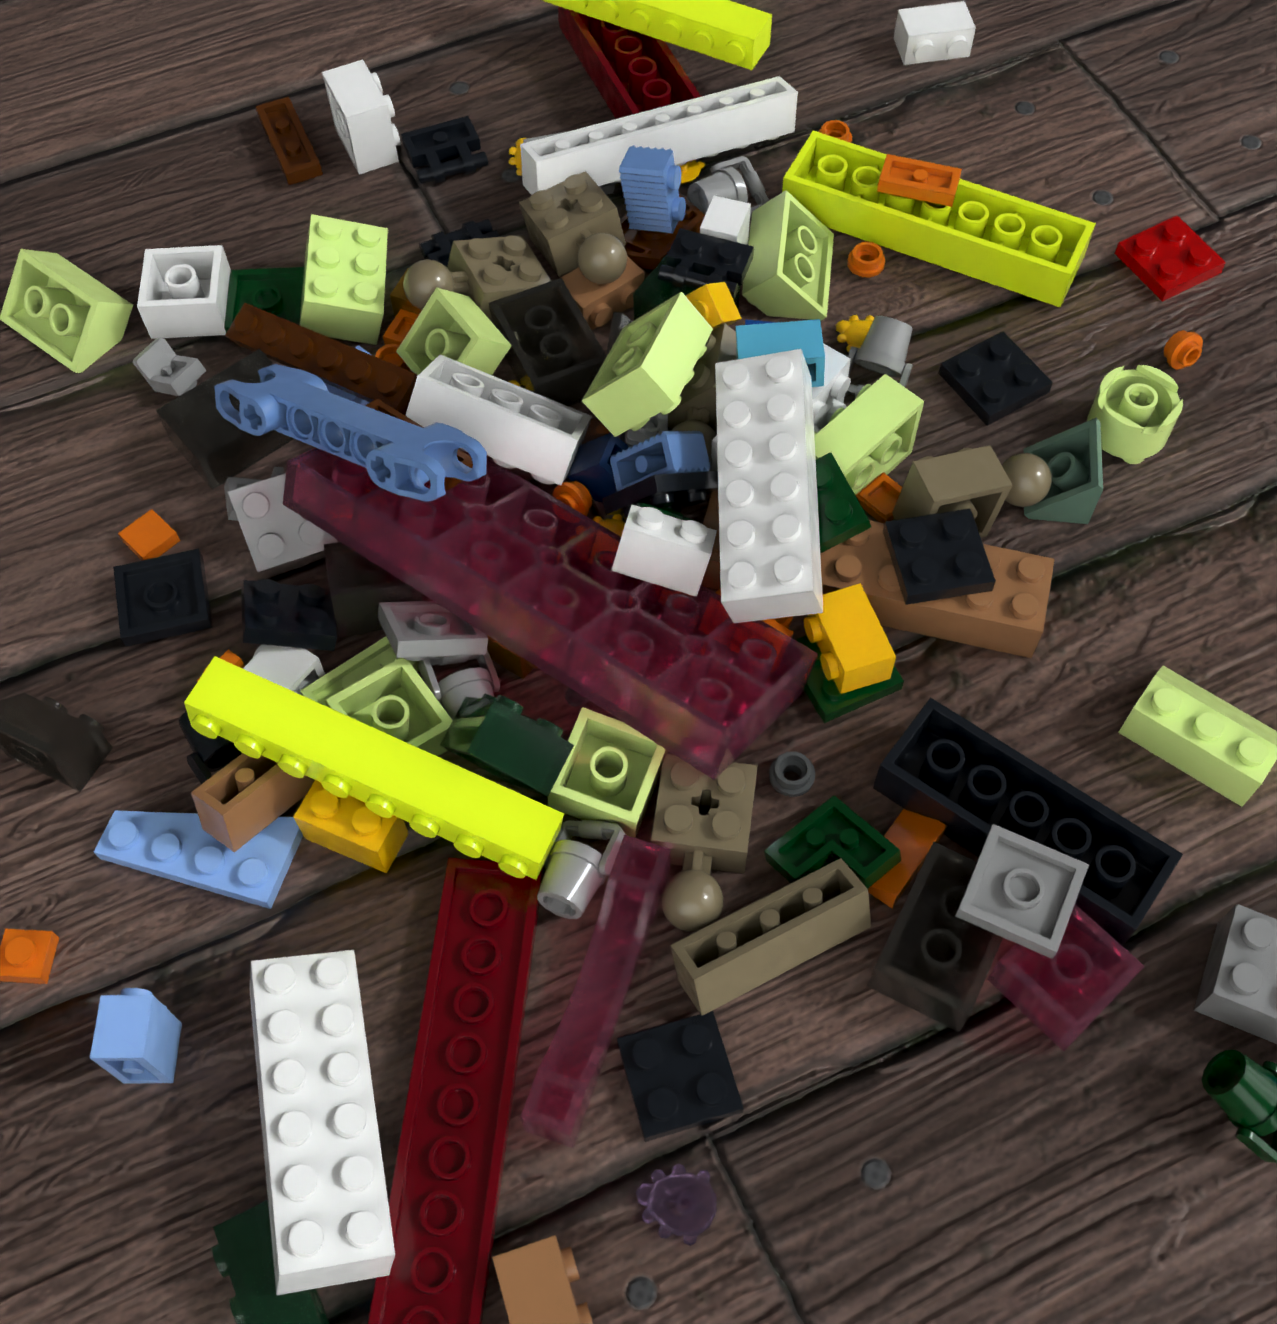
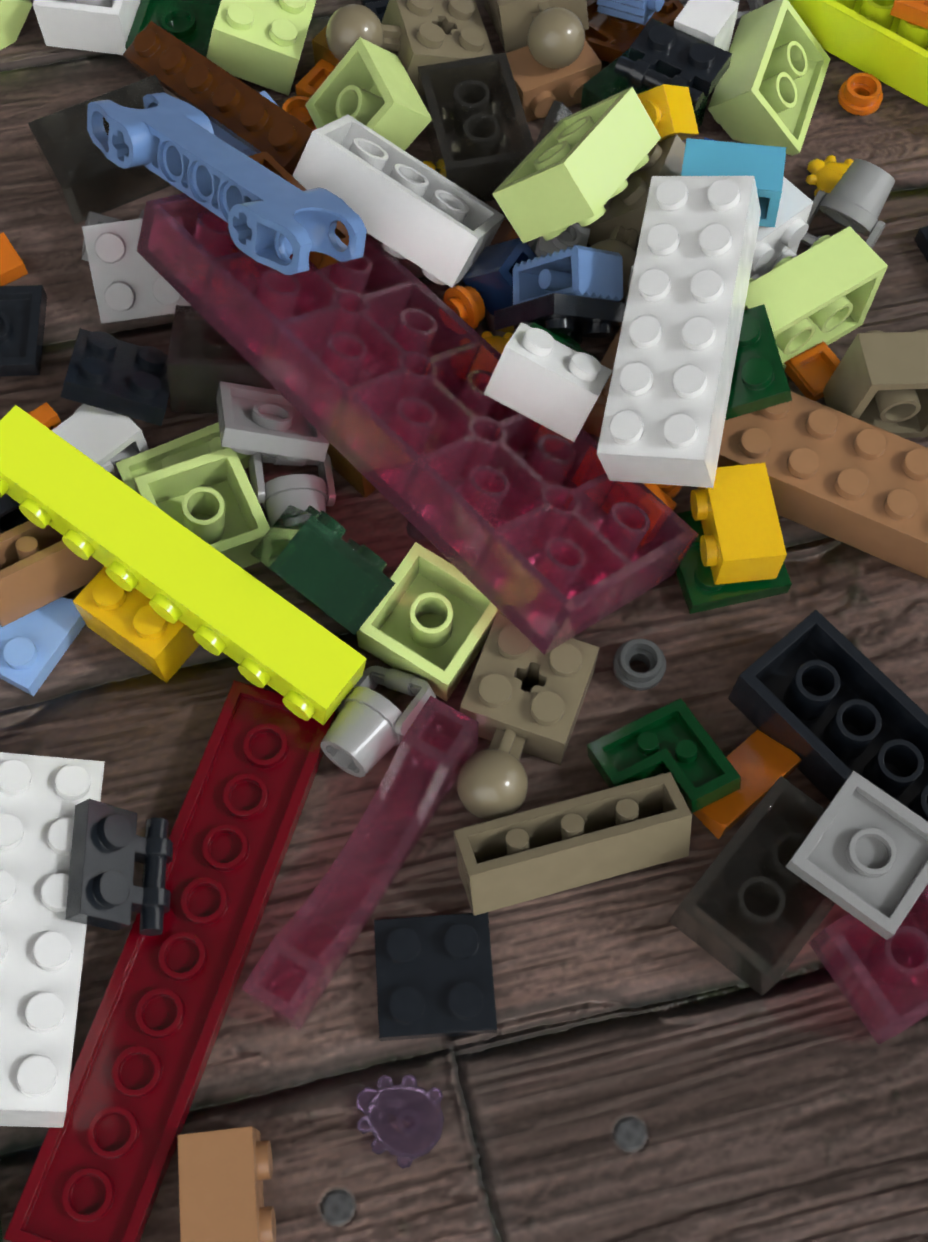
camera: 10 degrees right, 5 degrees up
(166, 370) = (52, 81): light grey bracket -> none
(377, 1042) = (103, 869): none -> black plate
(938, 556) = (863, 449): black plate -> none

